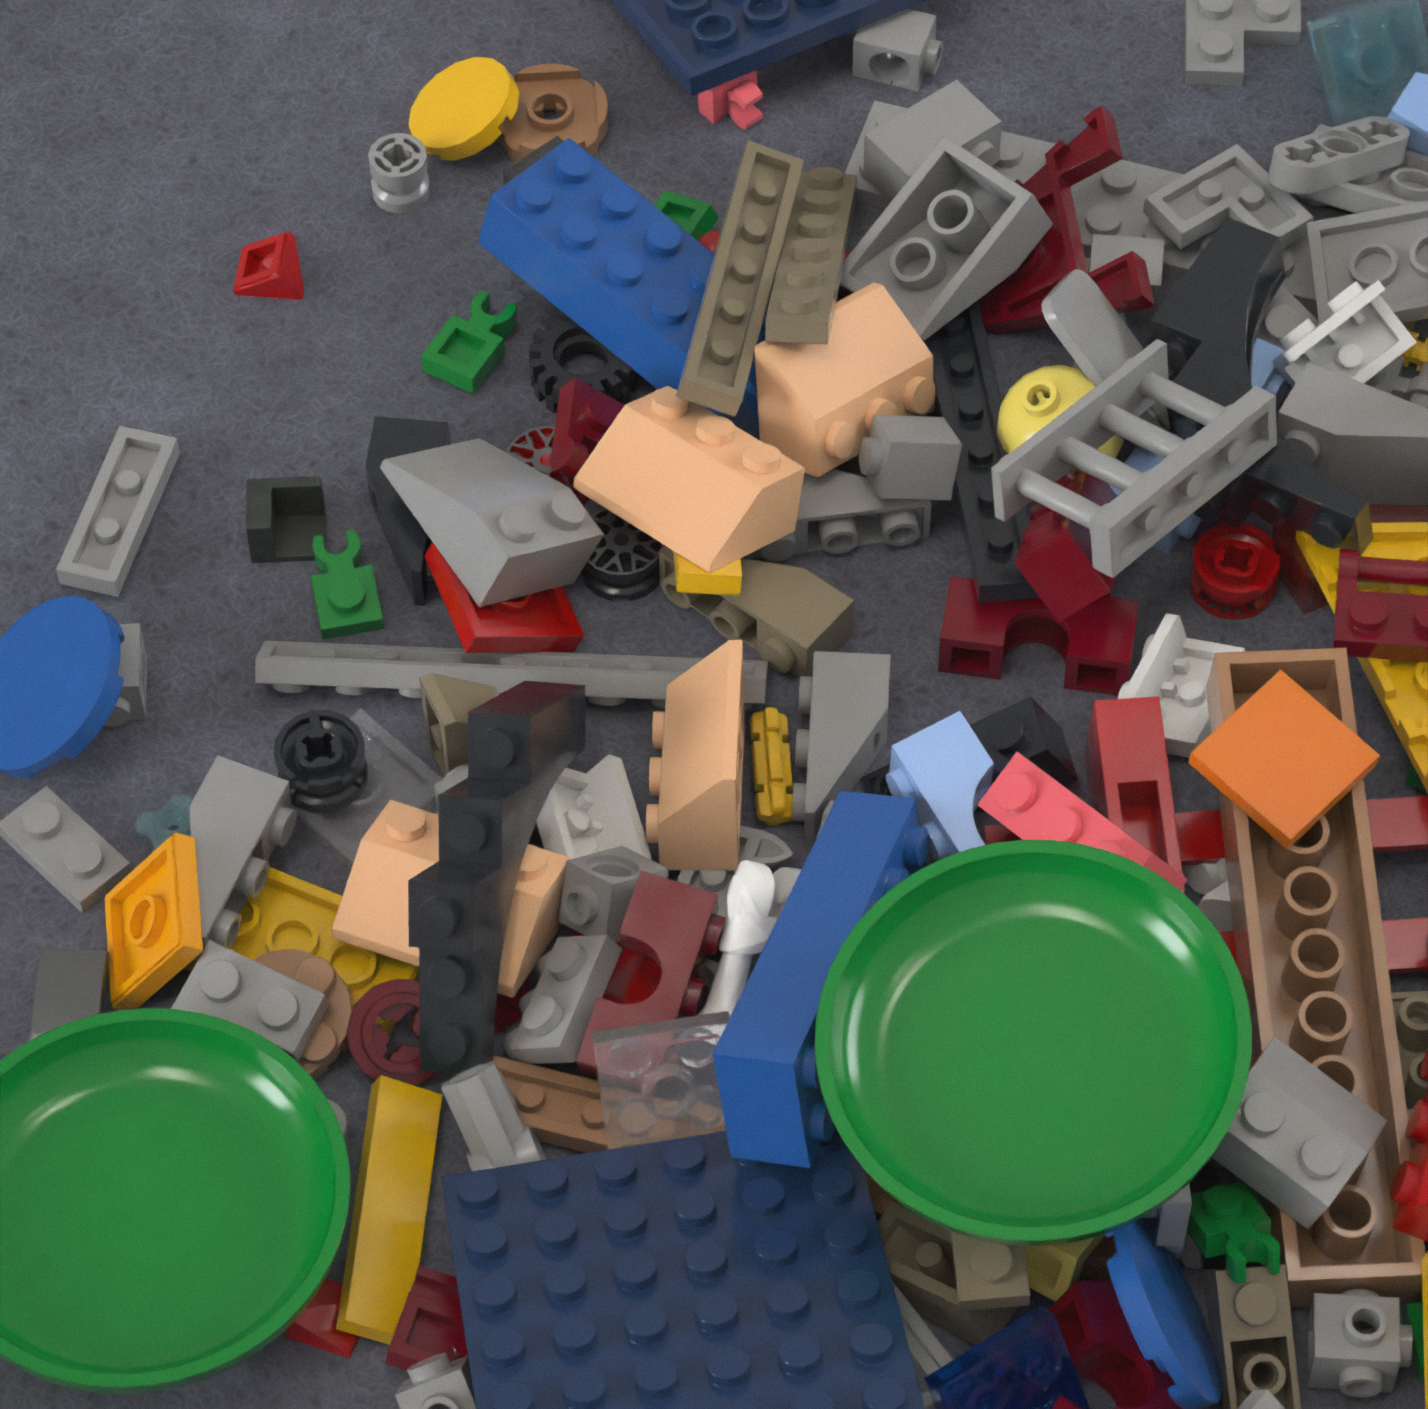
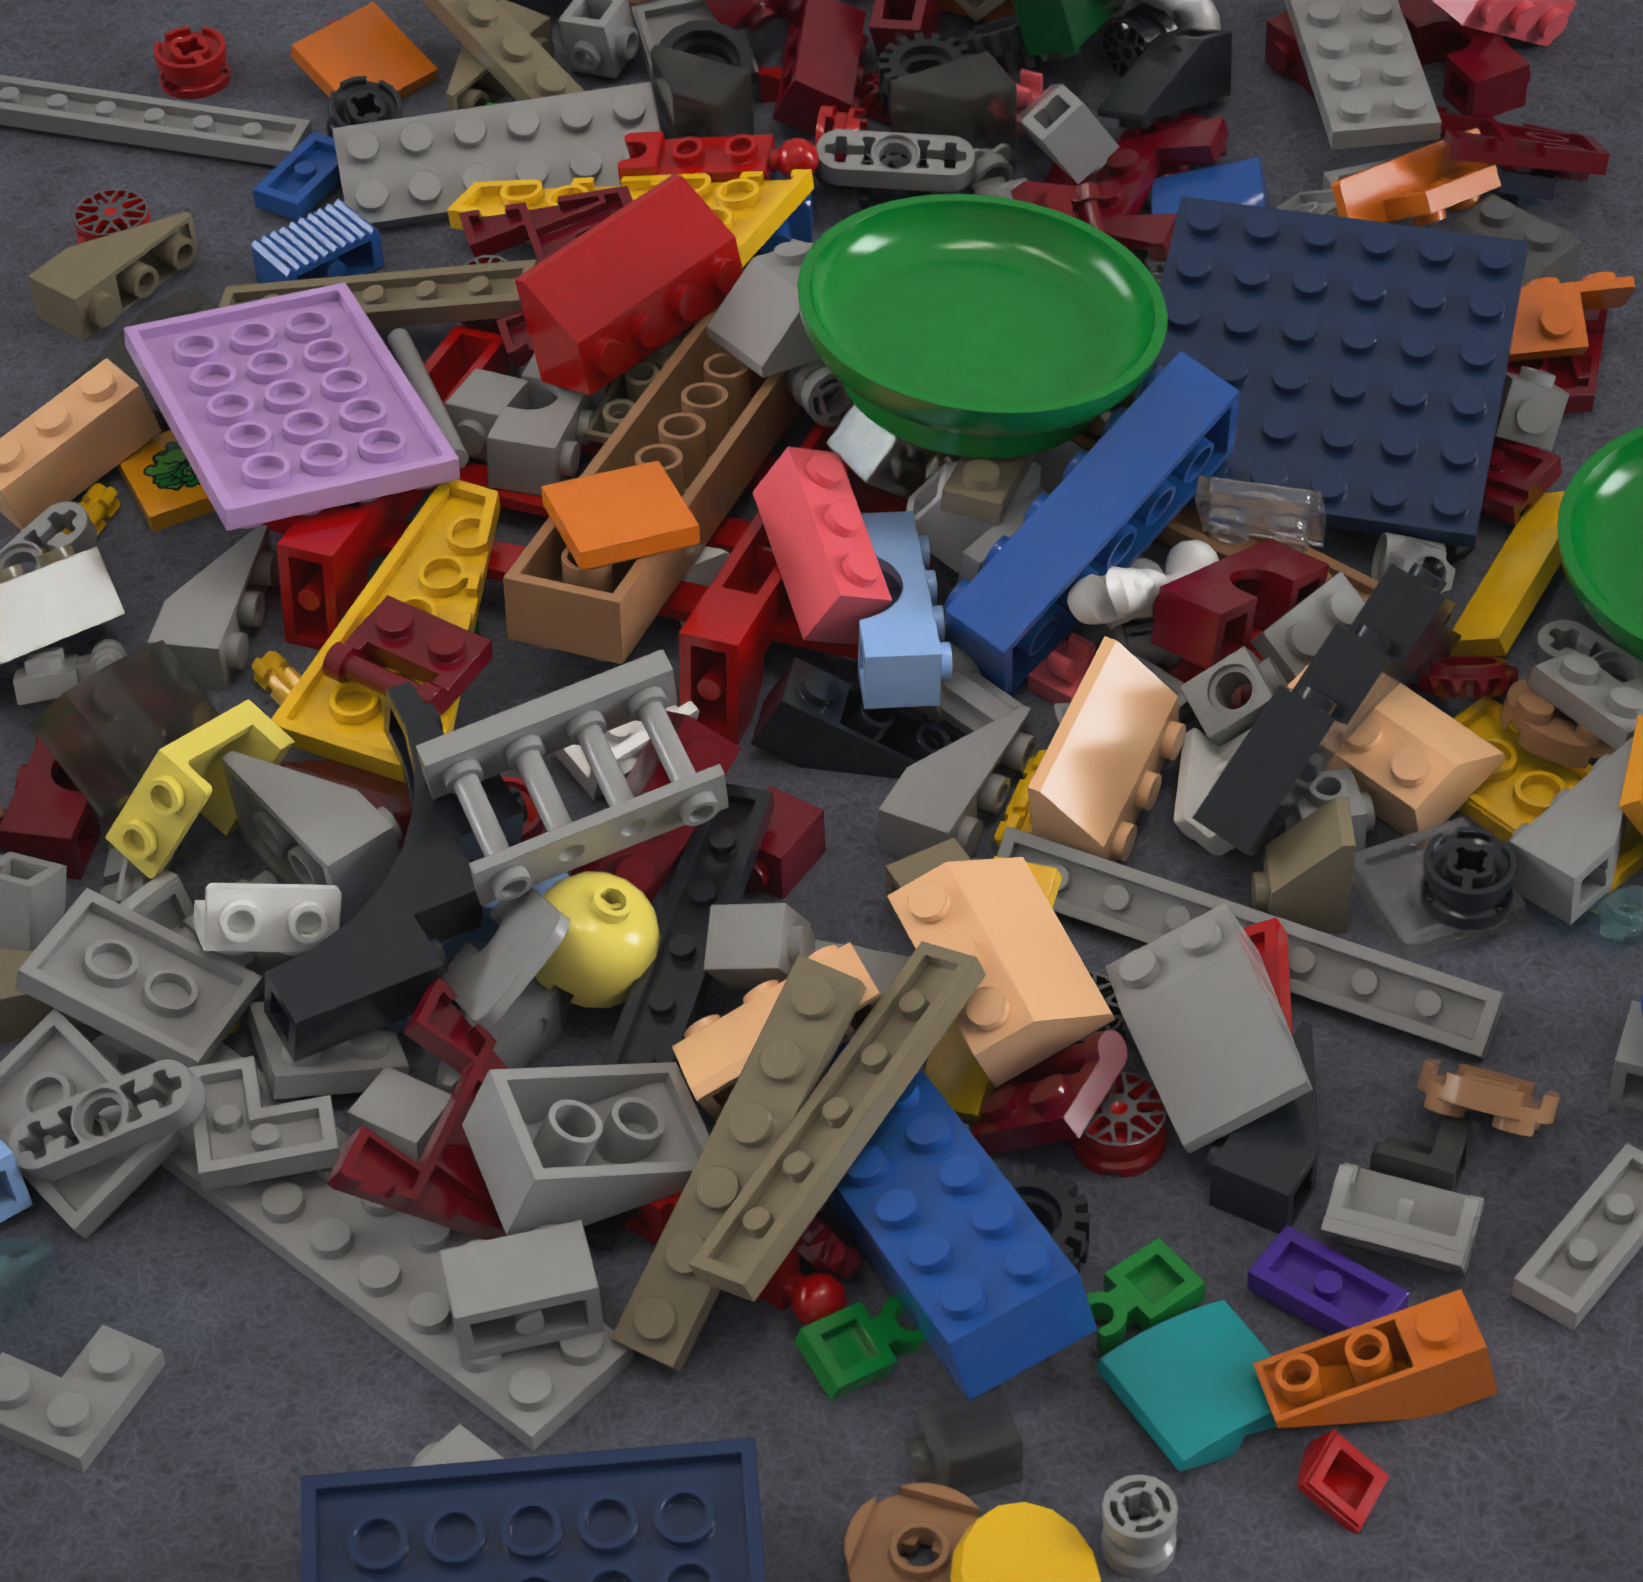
camera: 155 degrees left, 10 degrees down
(217, 598) = (1489, 1092): none -> medium nougat plate
(254, 333) = (1384, 1369): none -> orange slope
(280, 446) = (1402, 1218): none -> light grey hinge
(324, 394) = (1322, 1284): none -> dark purple plate
(344, 592) = (1379, 1084): green plate -> none
(395, 296) = (1193, 1384): none -> teal slope

